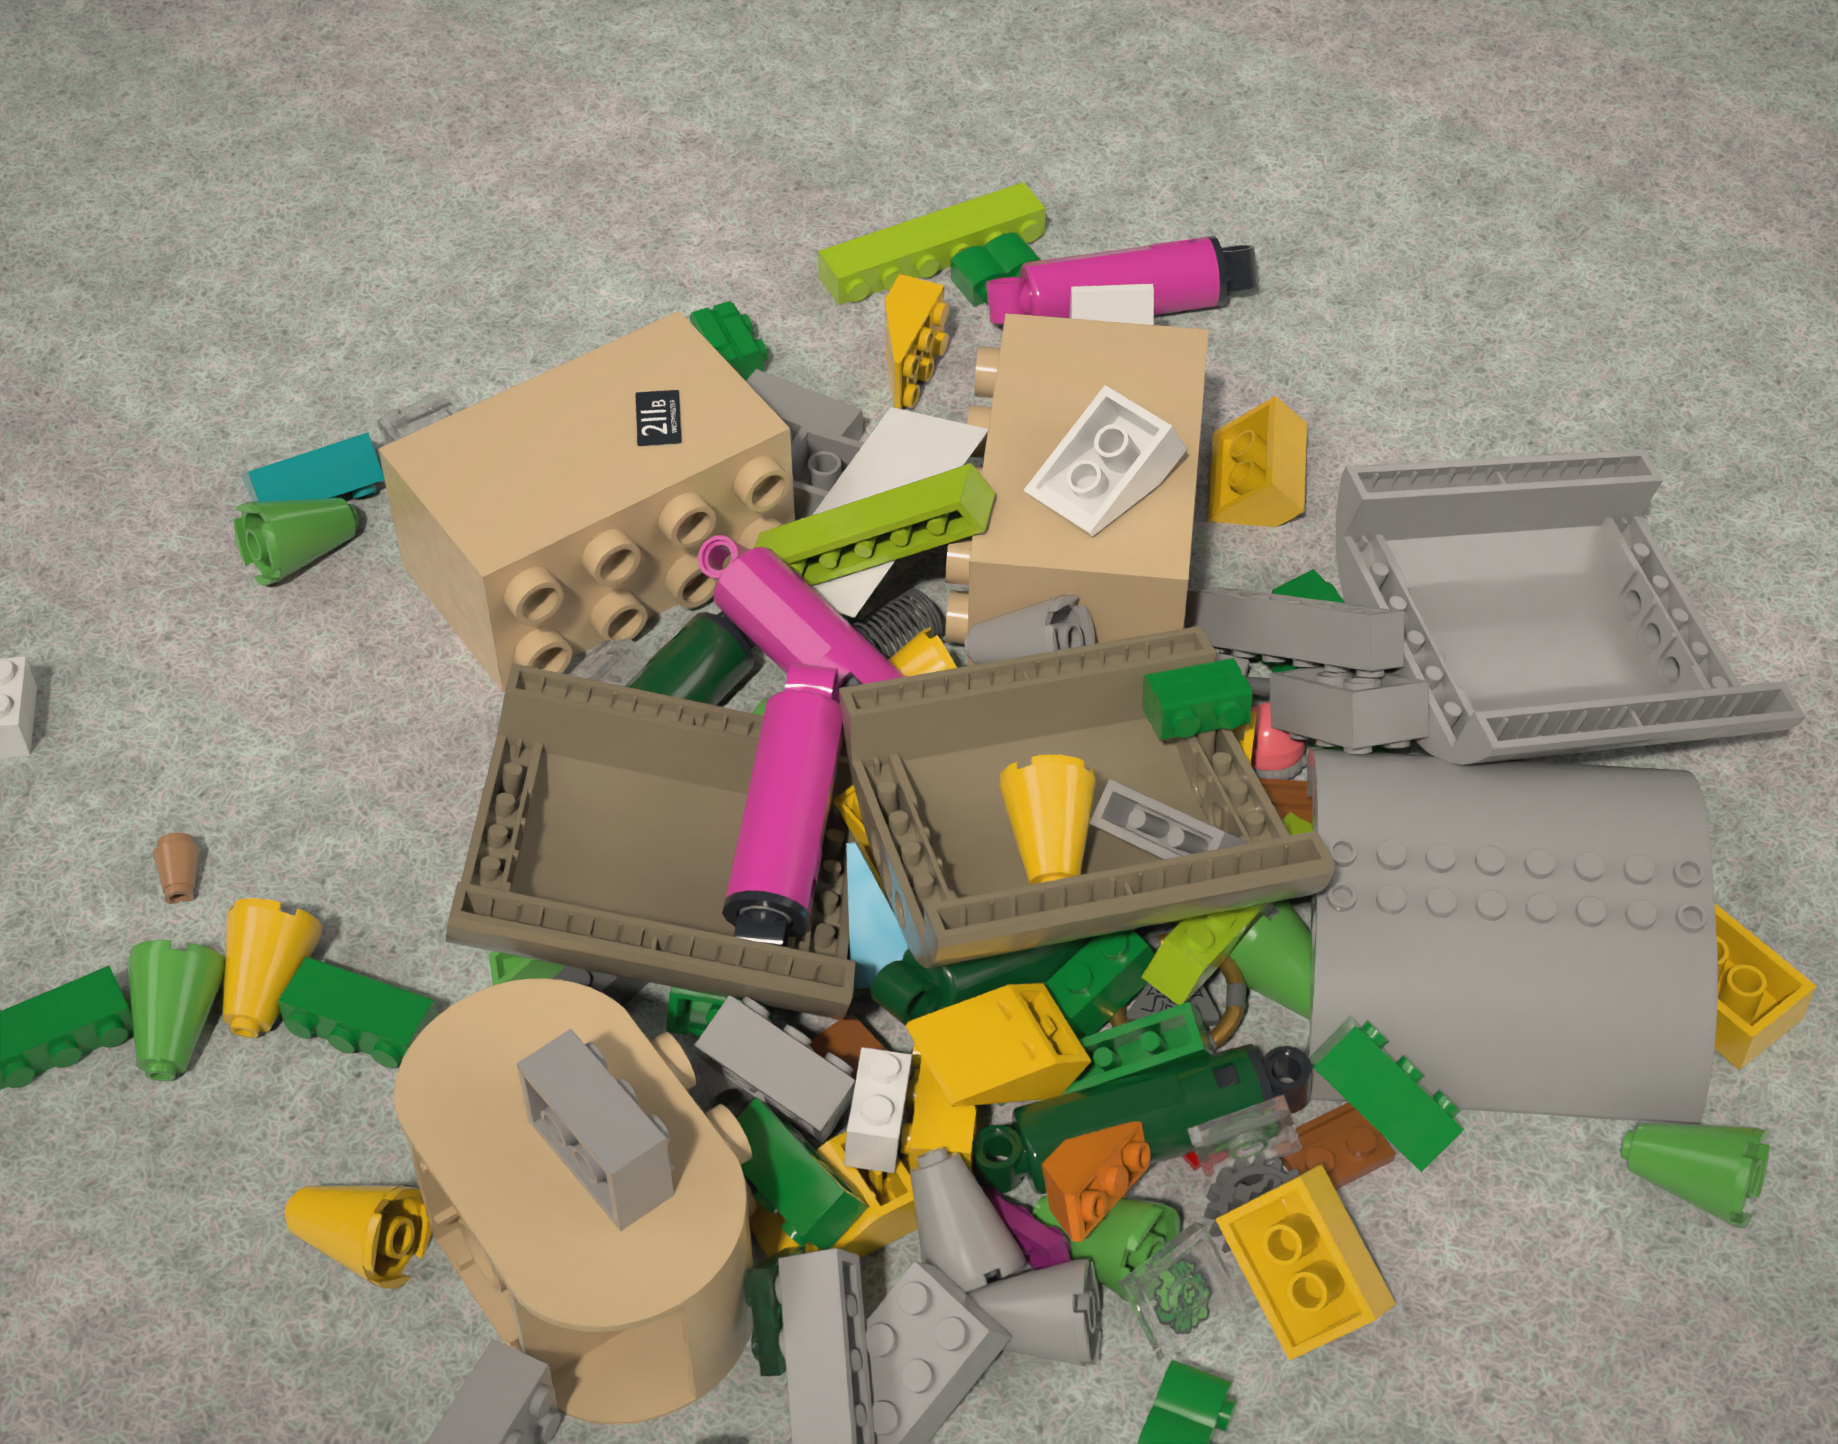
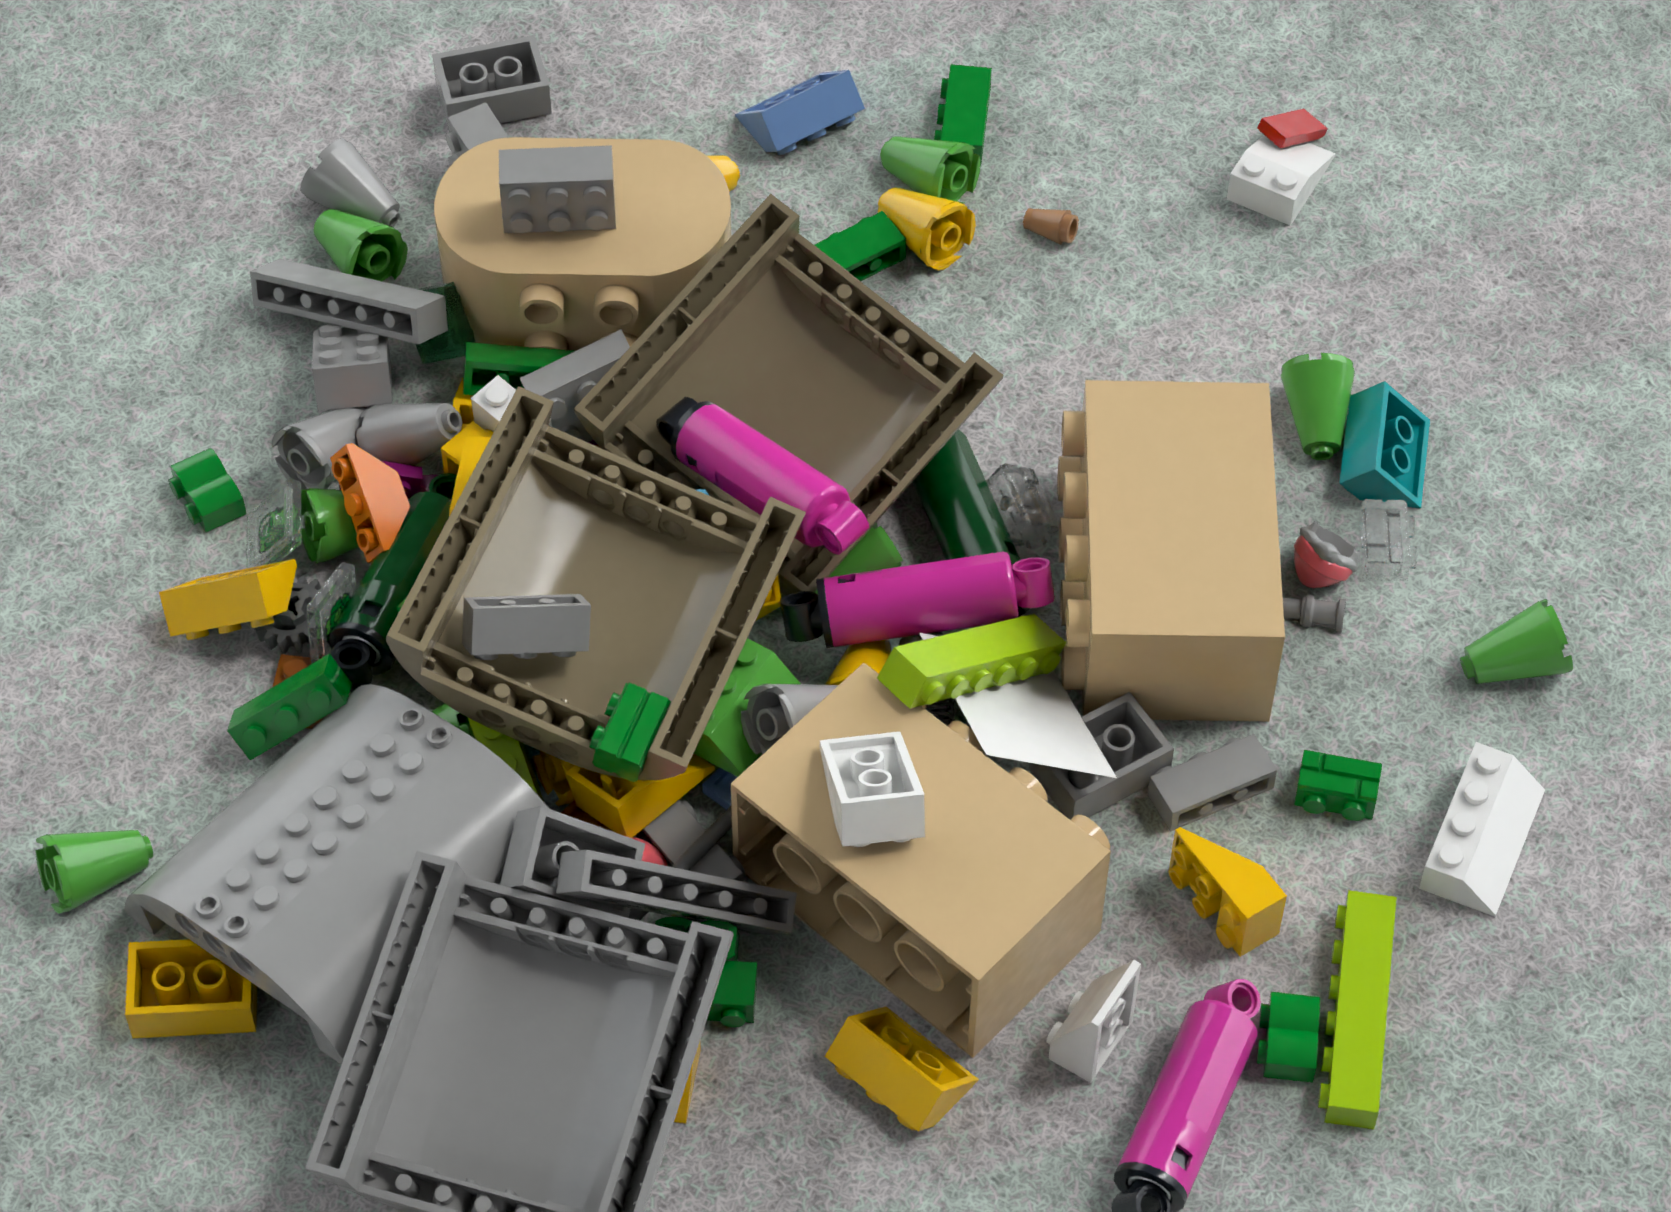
camera: 125 degrees right, 5 degrees up
(145, 1199) = (803, 111): none -> medium blue slope
(484, 289) = (1519, 648): none -> bright green cone
(658, 418) = (1168, 558): black sticker -> none
(697, 255) = (1483, 831): none -> white slope
(1049, 814) = (606, 575): yellow cone -> none

